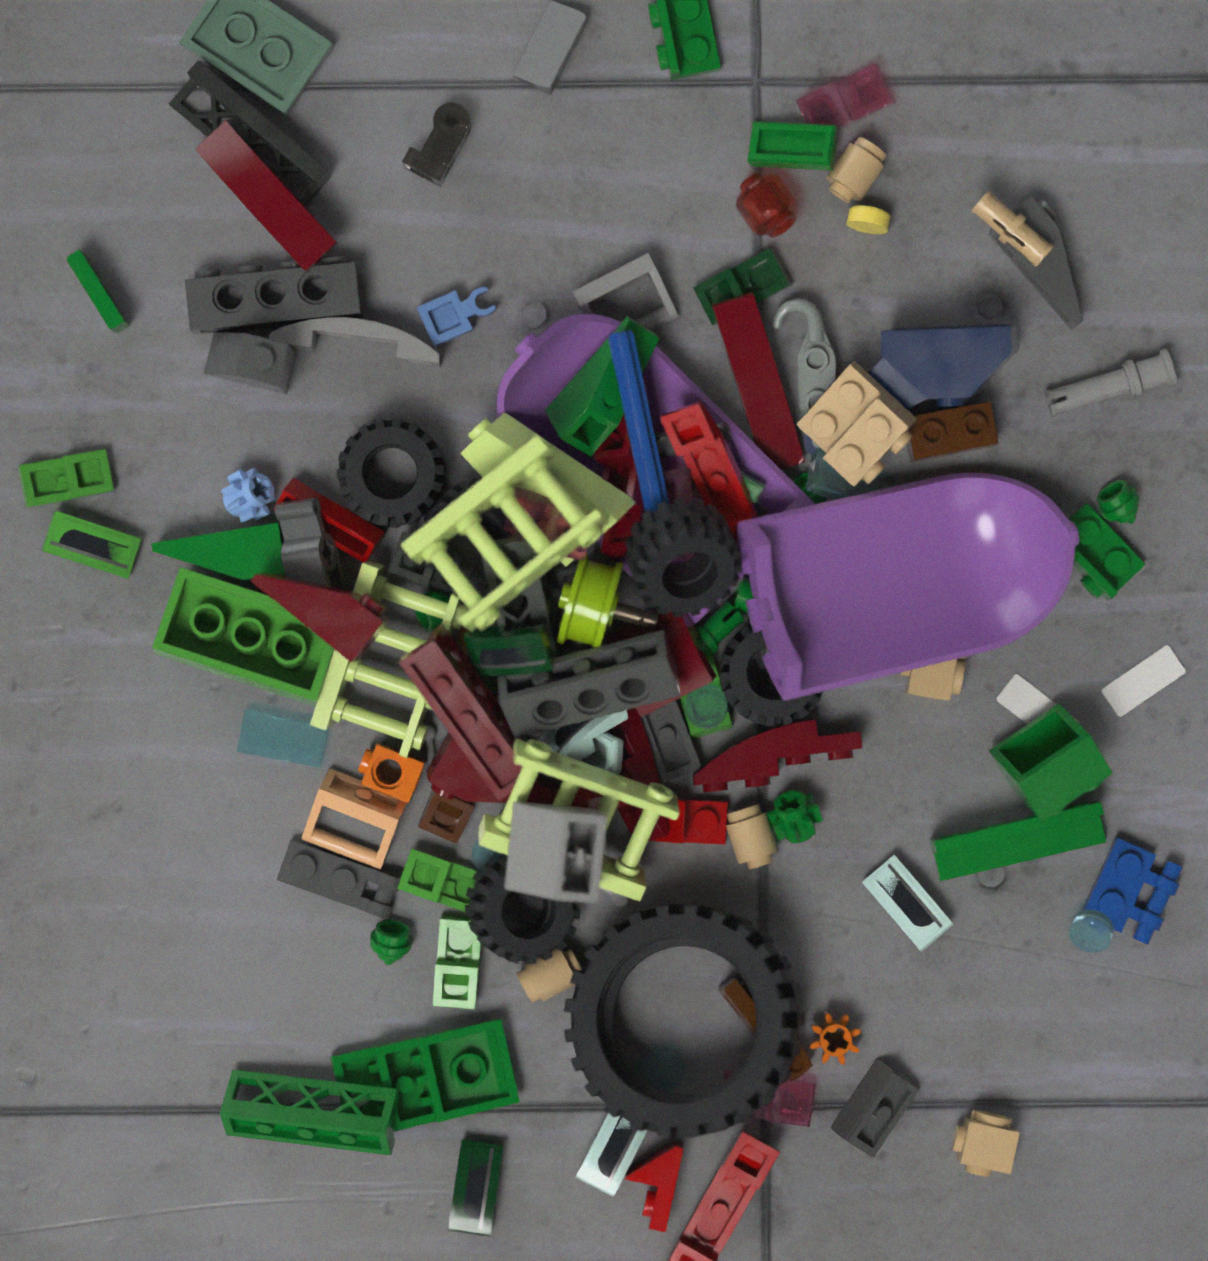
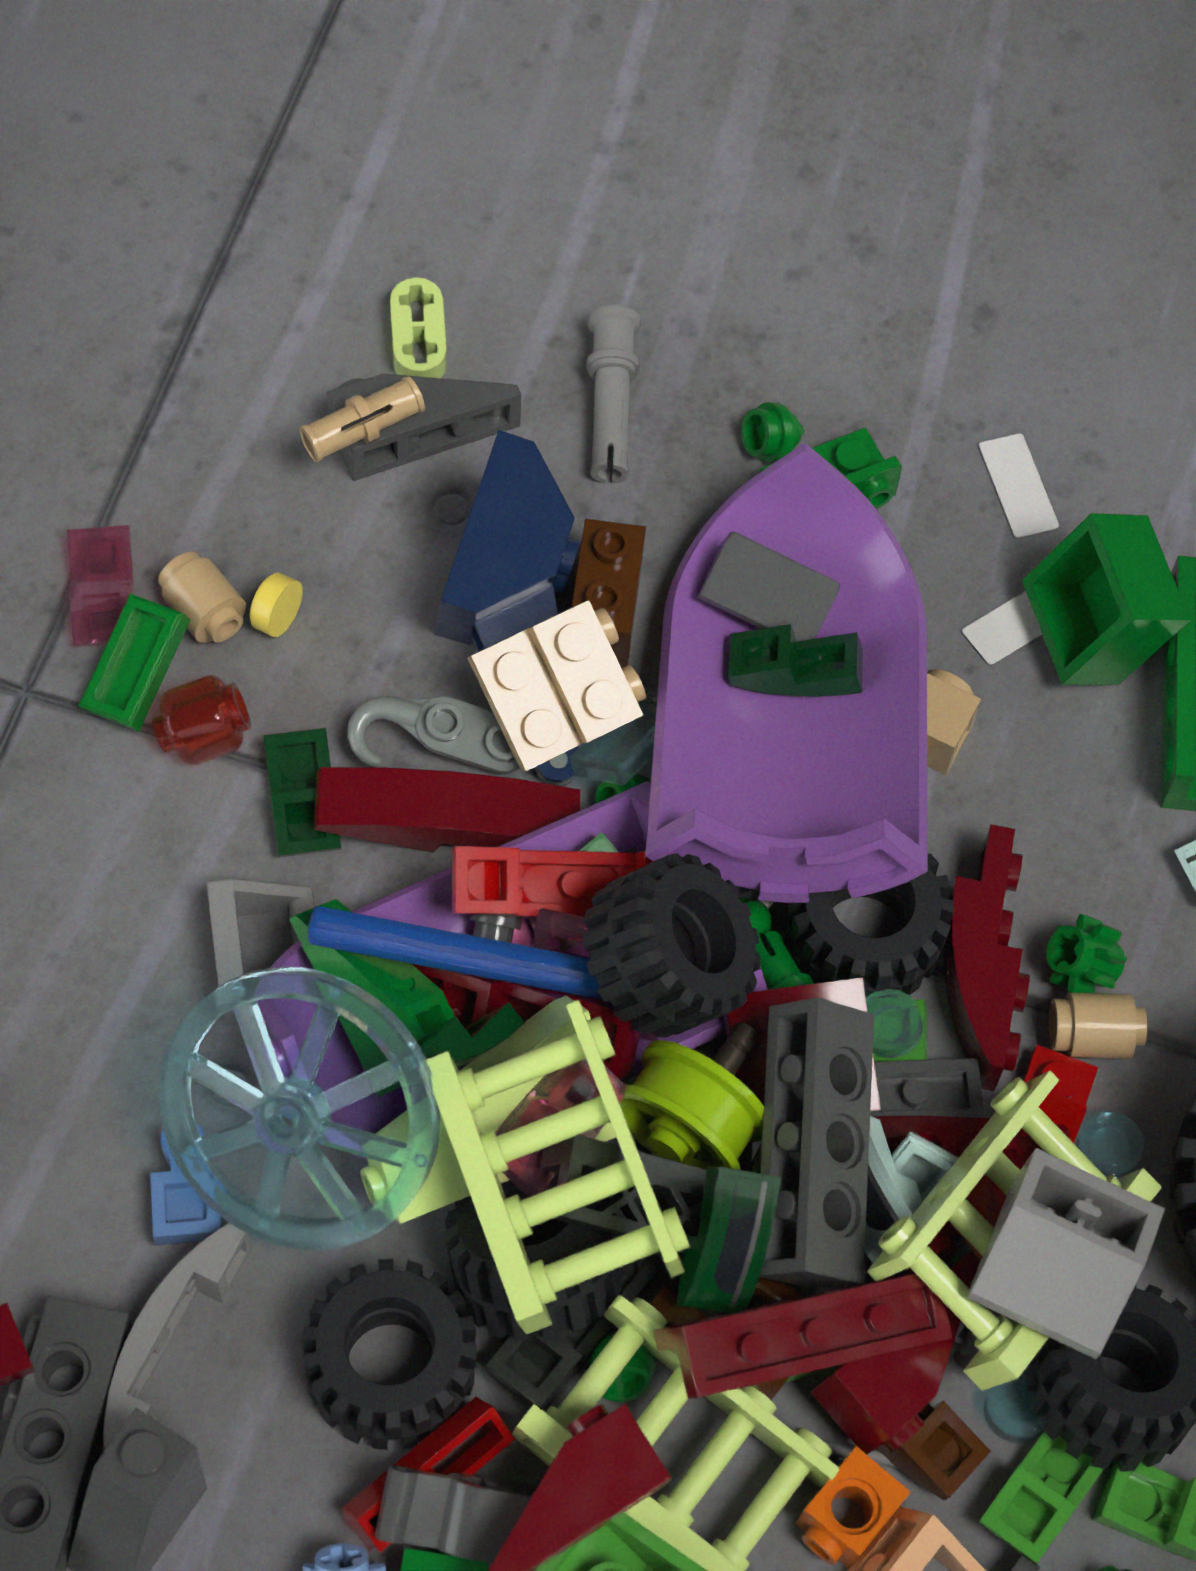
camera: 80 degrees left, 25 degrees down
(488, 368) = (304, 1106): none -> clear light blue wheel
(567, 445) = (472, 1041): none -> dark green slope
(677, 865) = (1111, 1143): none -> clear light blue tile
(936, 572) = (779, 665): none -> dark green slope
(983, 538) = (767, 587): none -> dark grey slope
(1113, 227) = (429, 331): none -> yellowish green beam

